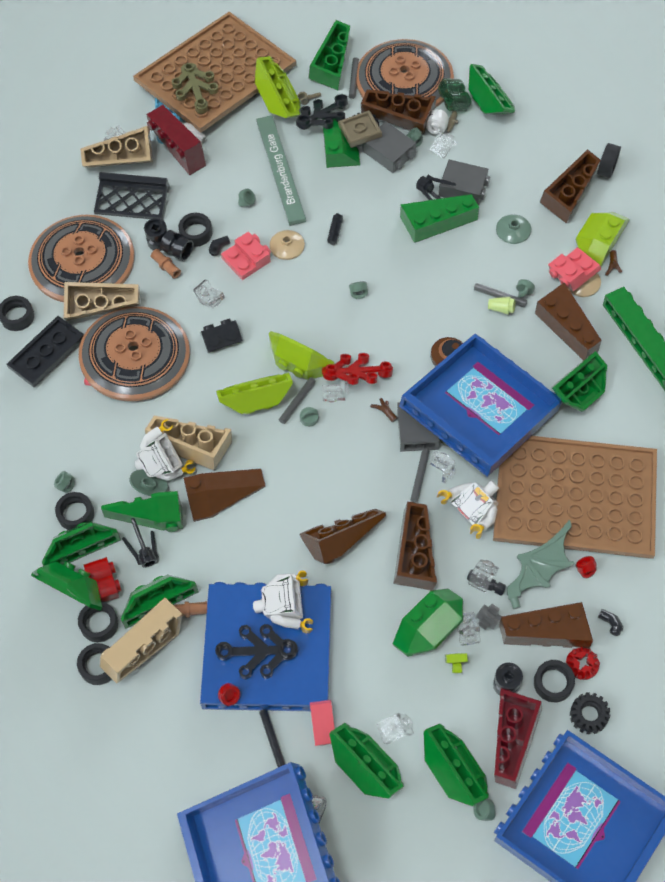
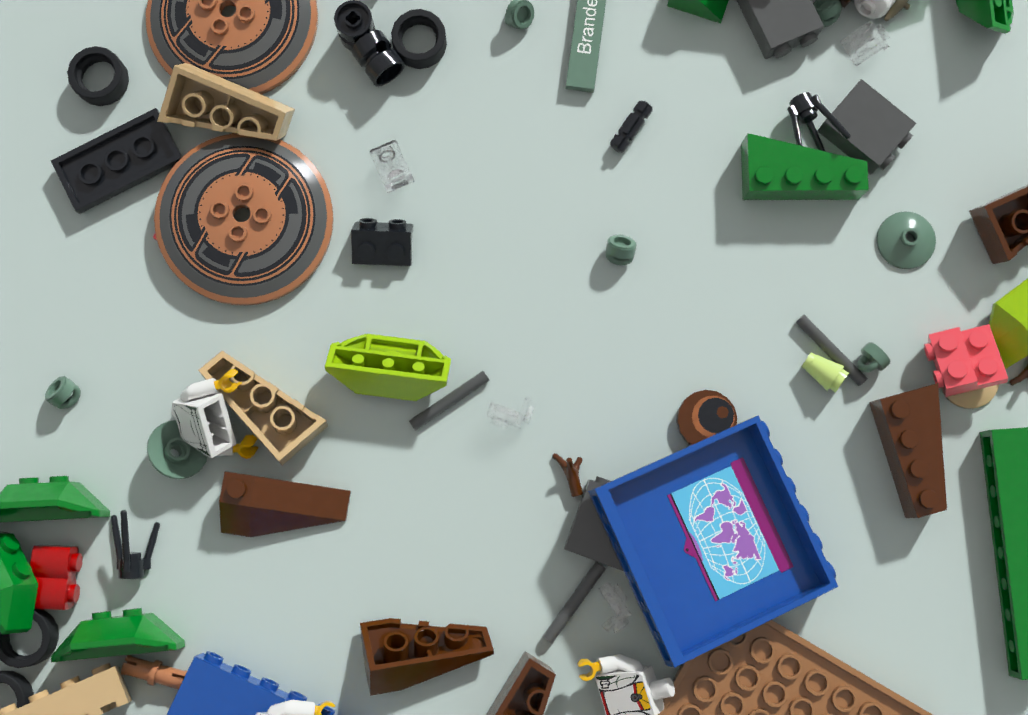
camera: 20 degrees right, 20 degrees up
(66, 500) = (36, 441): black tyre -> none
(159, 512) = (170, 507): green wedge -> none
(165, 263) = (350, 81): nougat pin -> none
(216, 245) = (440, 79): black arm -> none
(246, 255) = (477, 118): coral plate -> none
(287, 250) = (547, 134): tan dish -> none
(297, 357) = (476, 334): lime wedge -> none
(309, 416) = (454, 435): sand green tile -> none
(355, 371) = (552, 394): red plant -> none
(583, 383) = (880, 565): green wedge -> none

